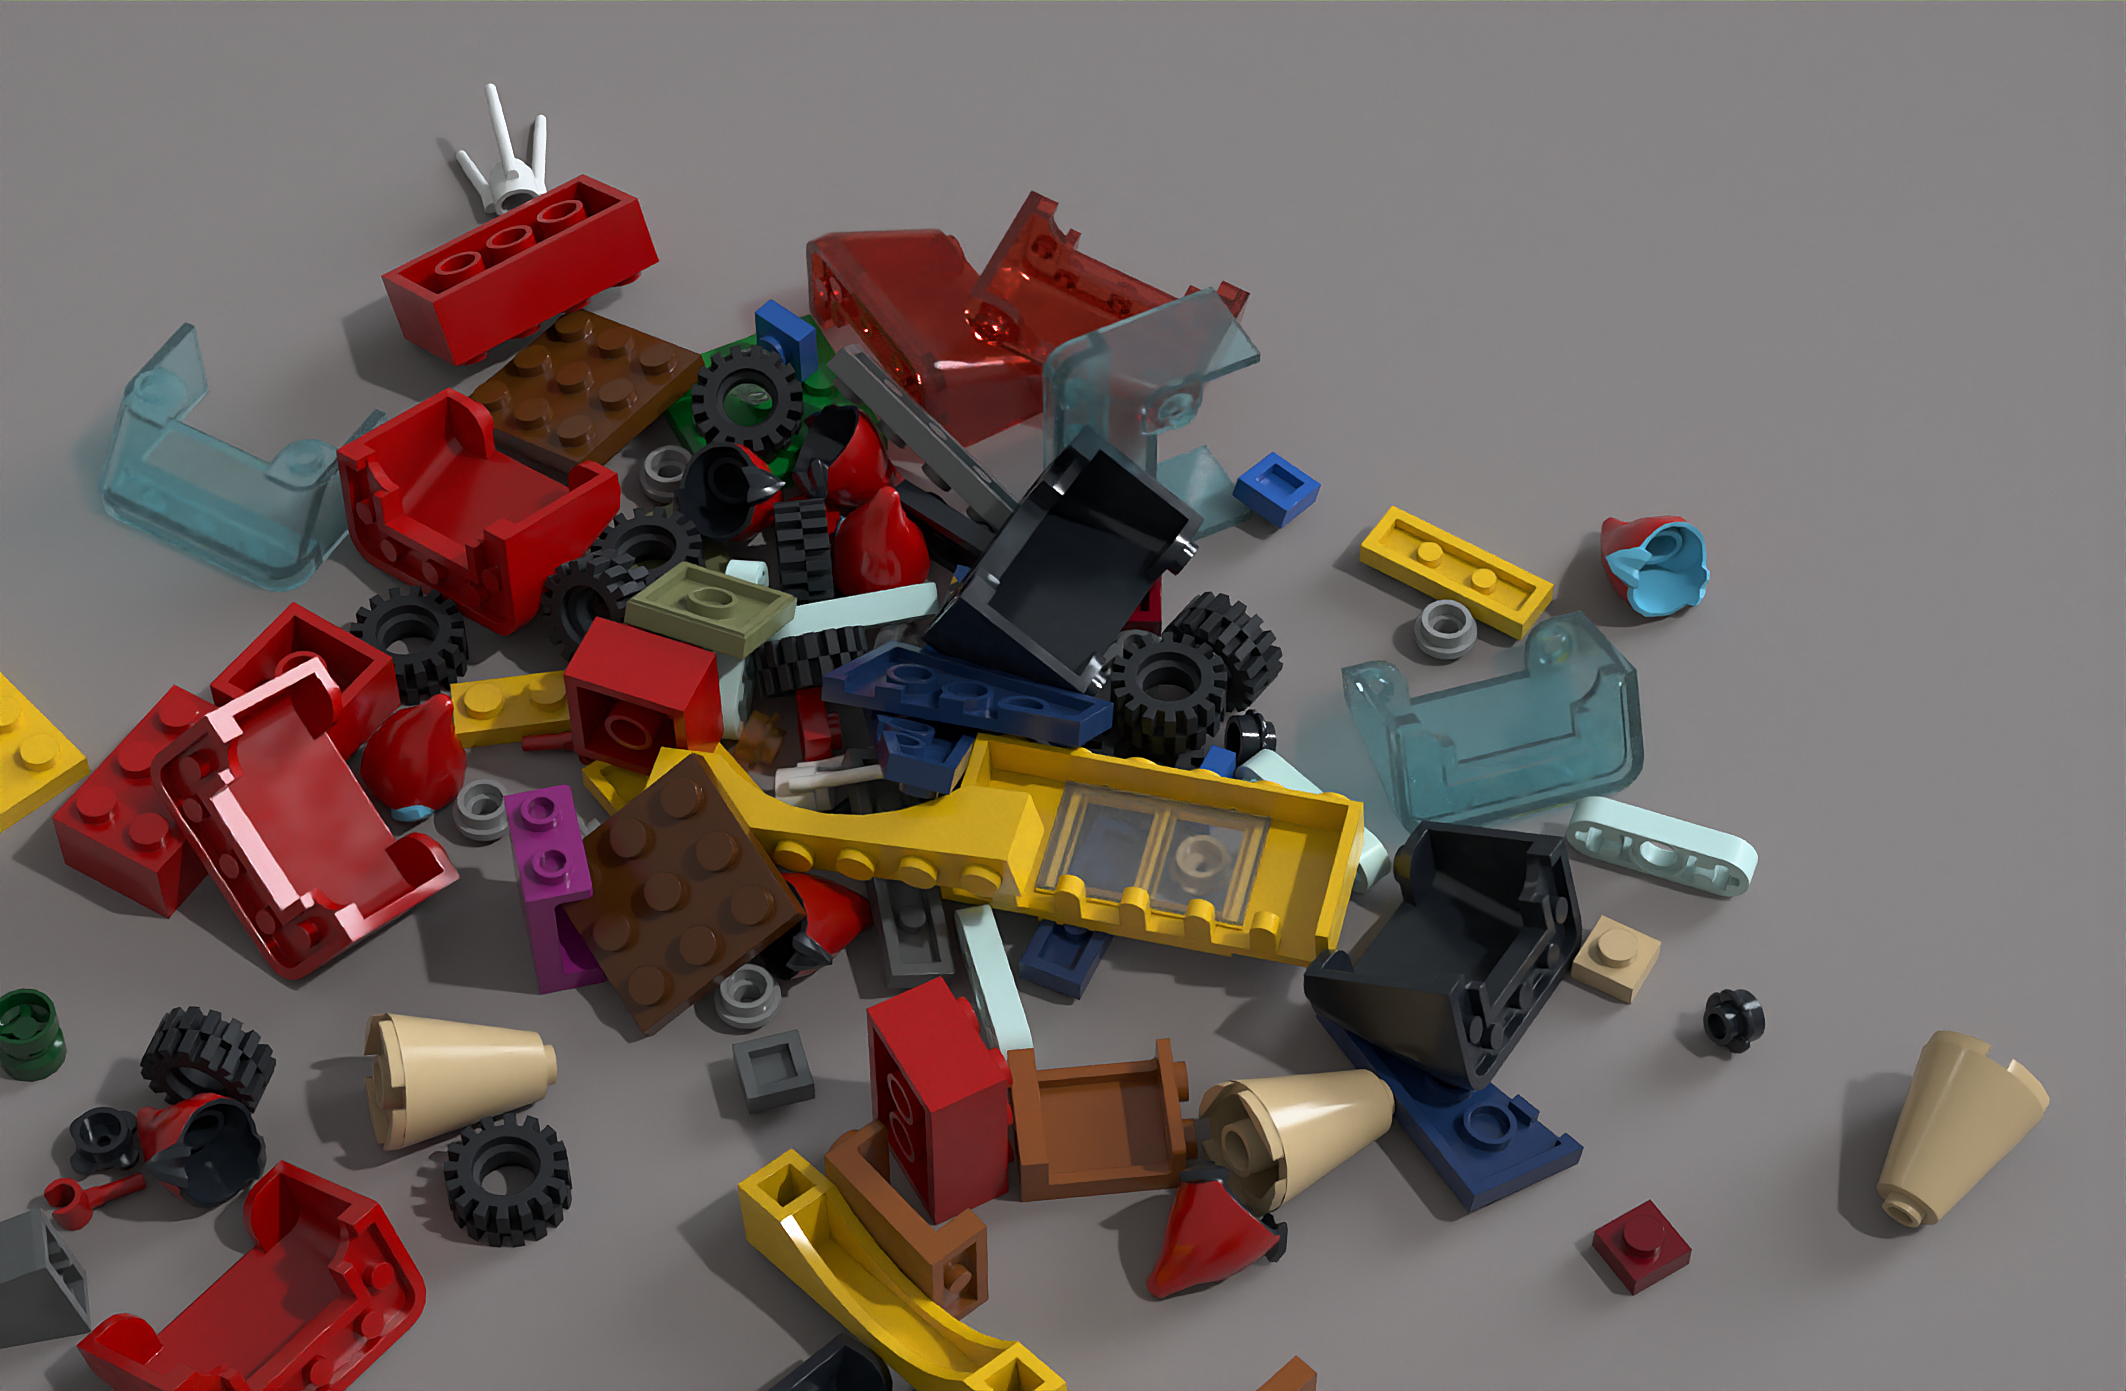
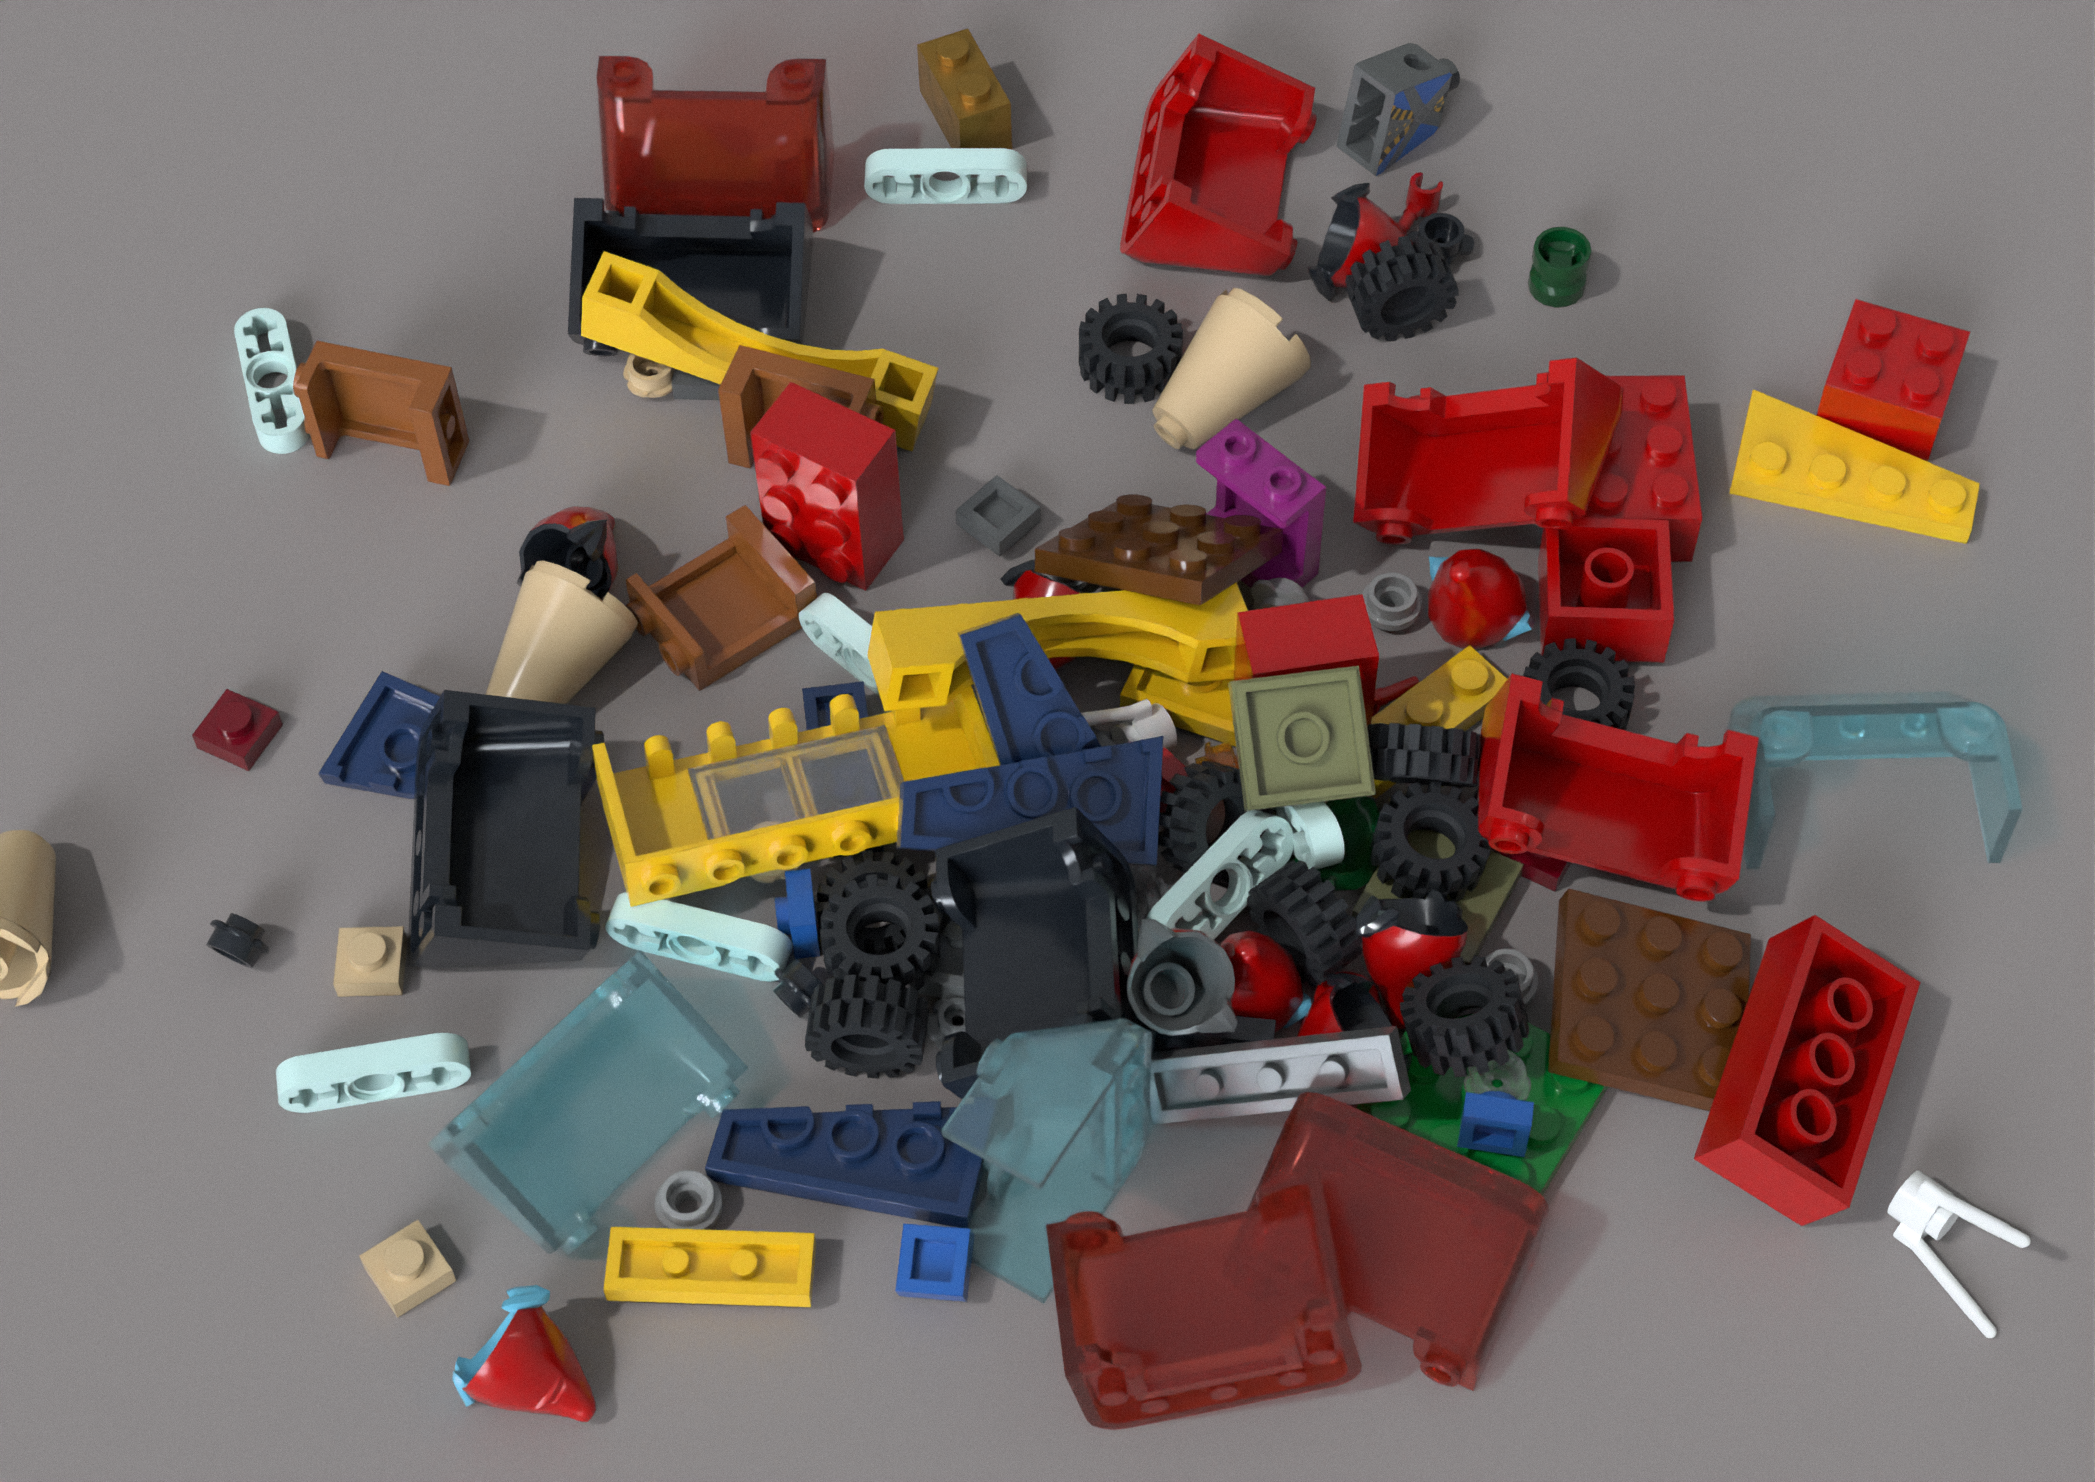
camera: 150 degrees right, 5 degrees up
(948, 518) = (1181, 981): none -> dark grey hat
(1290, 589) = (851, 1159): none -> dark blue wing
(1704, 698) = (407, 1268): none -> tan plate

